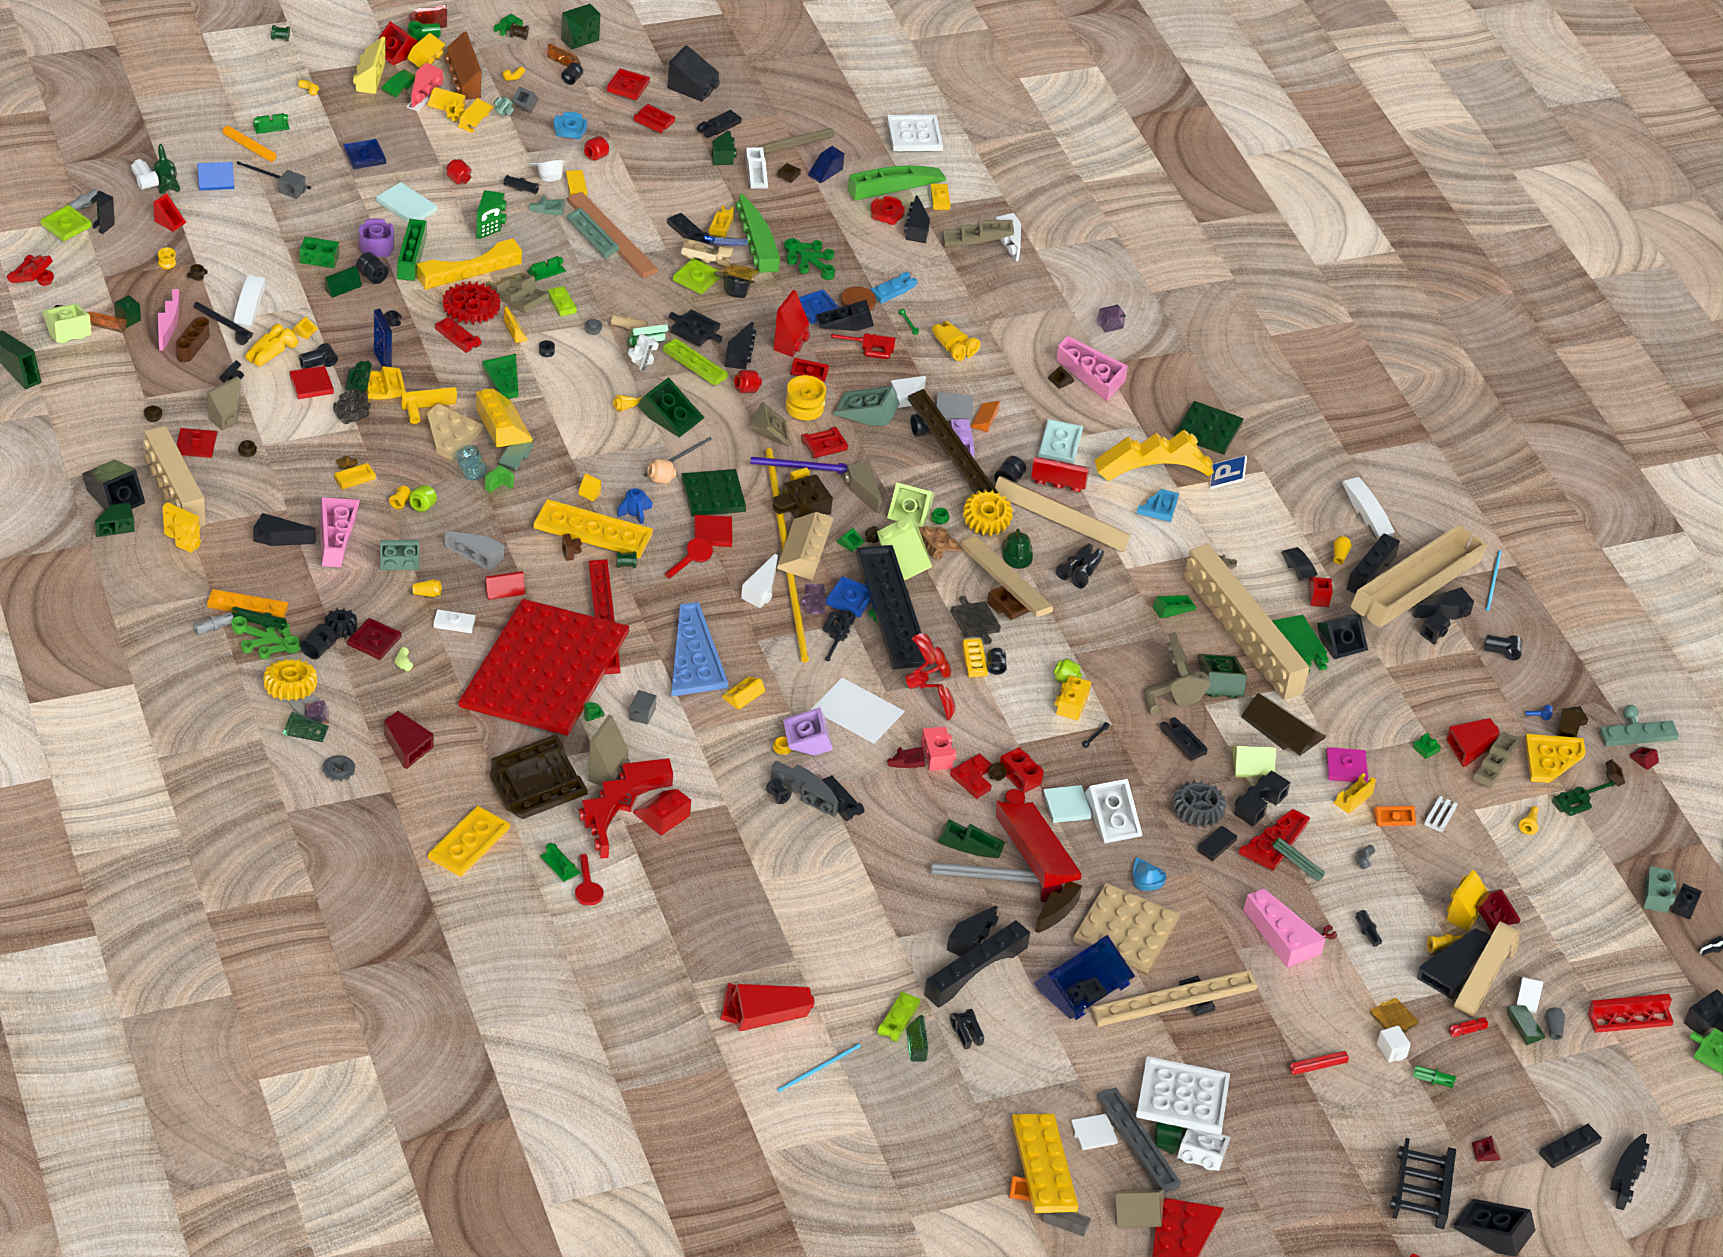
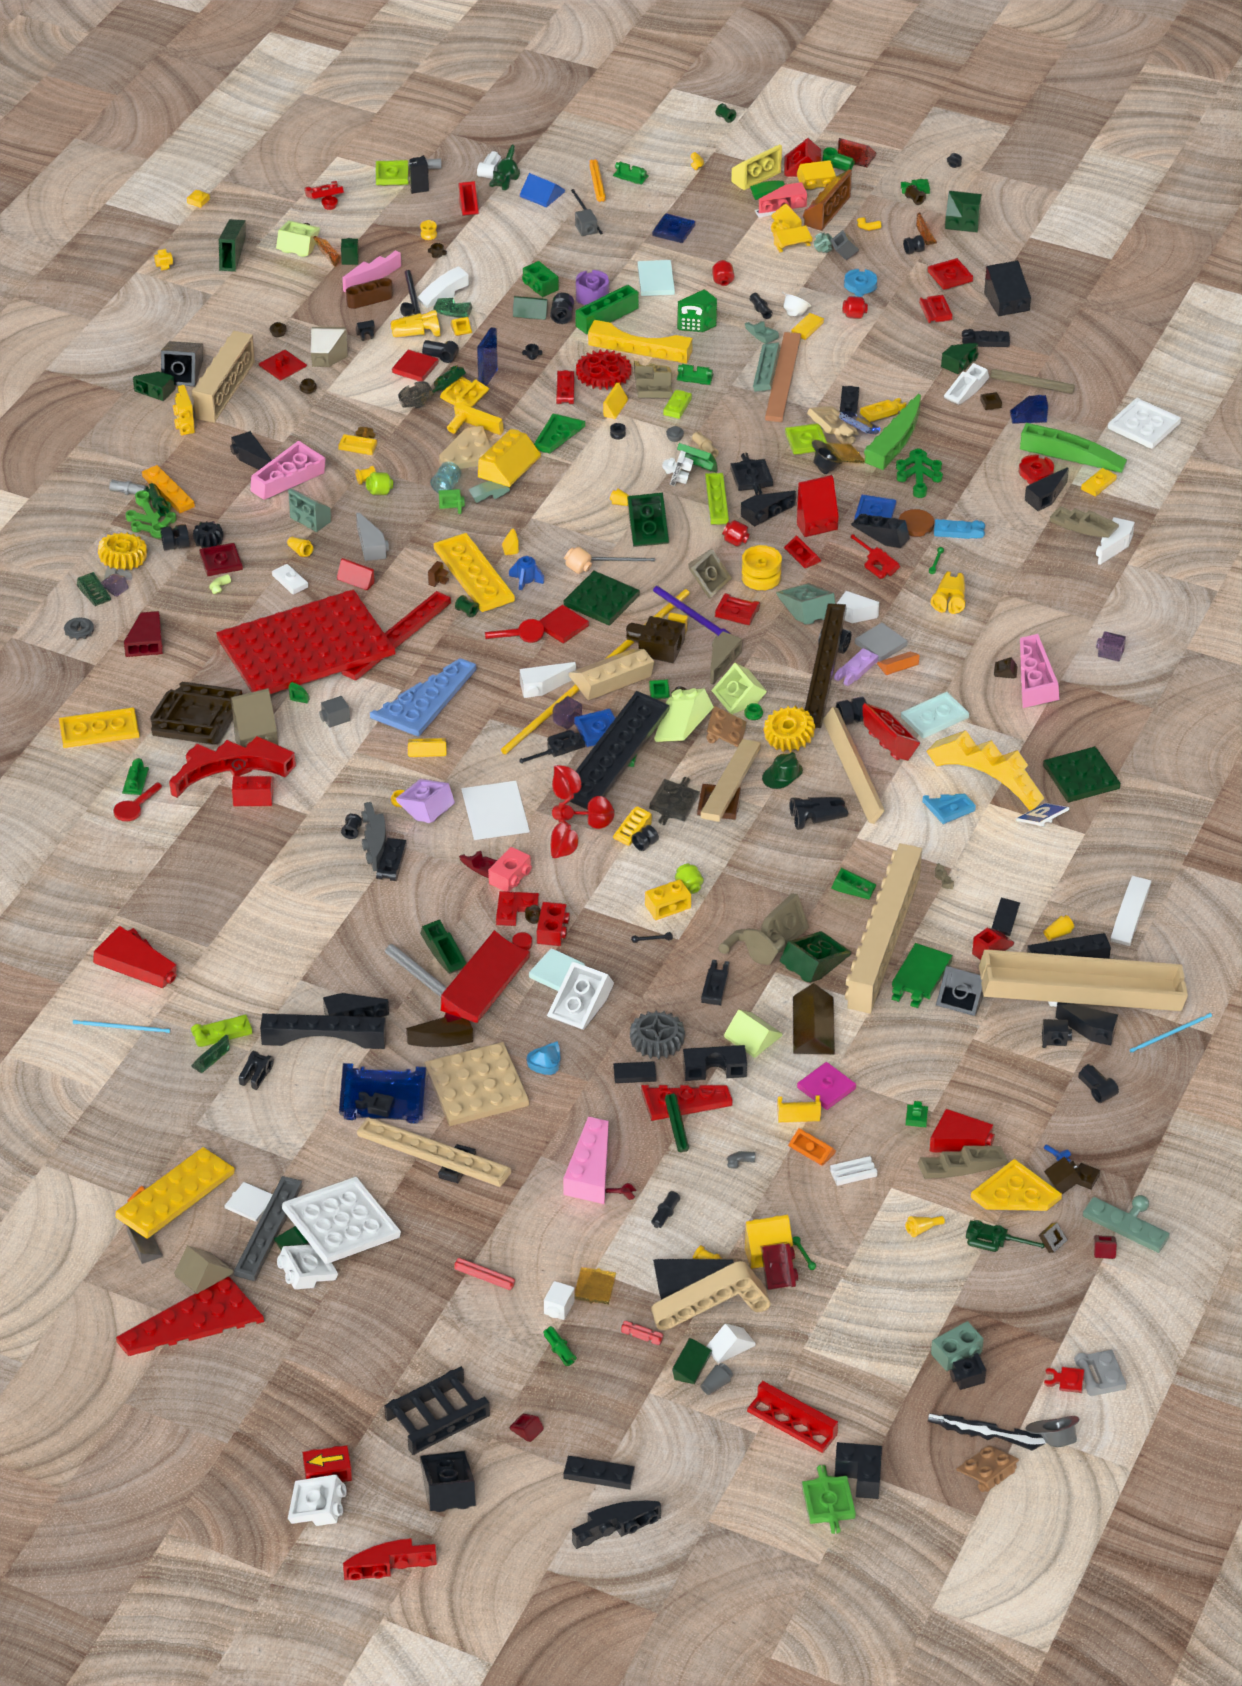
camera: 50 degrees right, 0 degrees up
(280, 315) = (449, 308): none -> clear green slope

